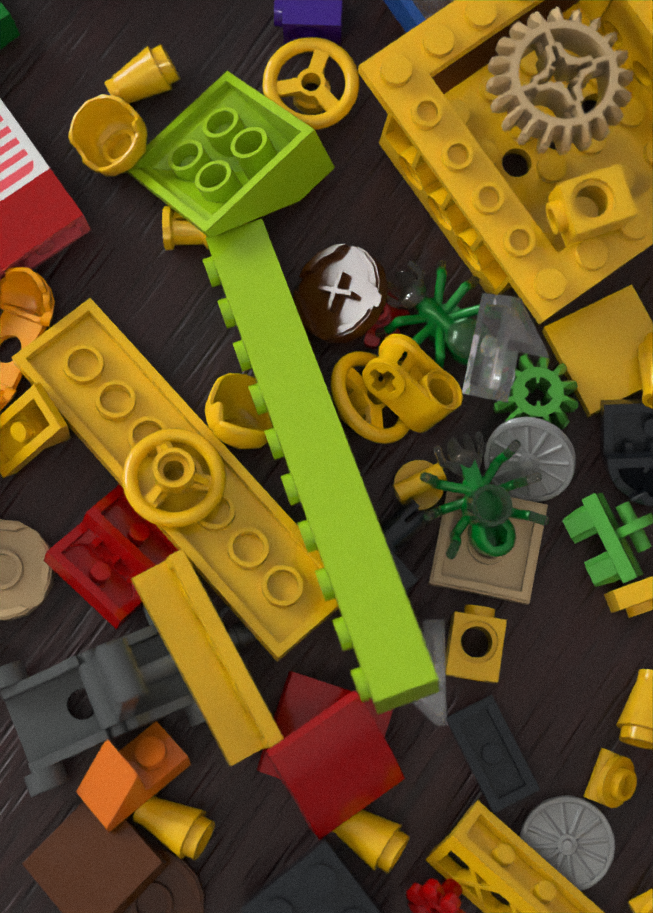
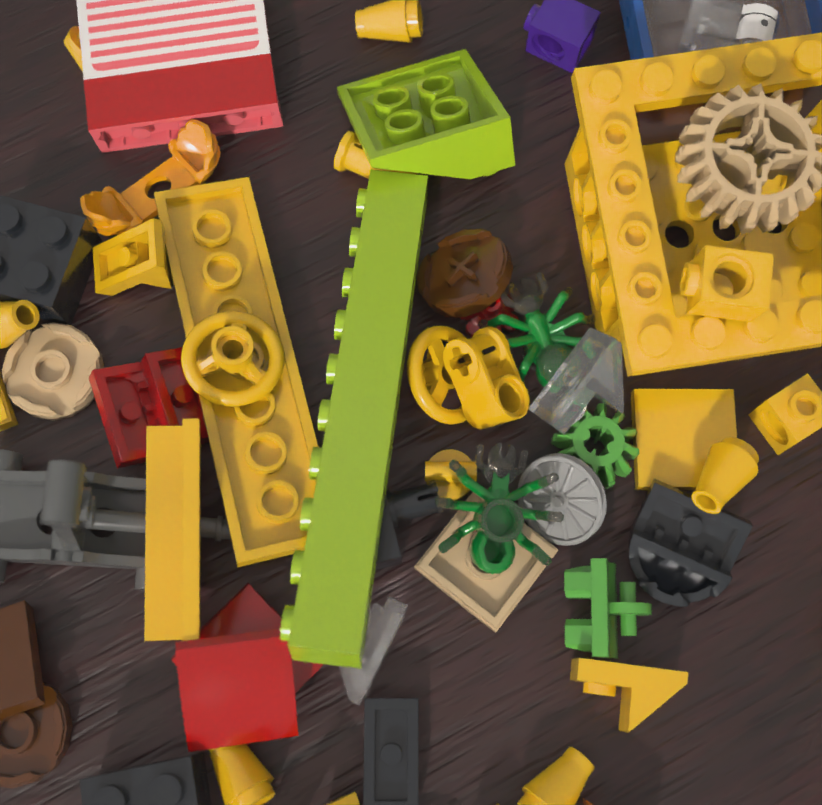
camera: 25 degrees right, 5 degrees down
(108, 135) = (335, 51): yellow hair -> none
(129, 777) = (53, 606): orange slope -> none
(177, 826) = (73, 672): yellow cone -> none
(233, 414) = (313, 329): yellow hair -> none
(321, 98) = (526, 108): yellow piece -> none
(460, 664) = (402, 653): yellow brick -> none

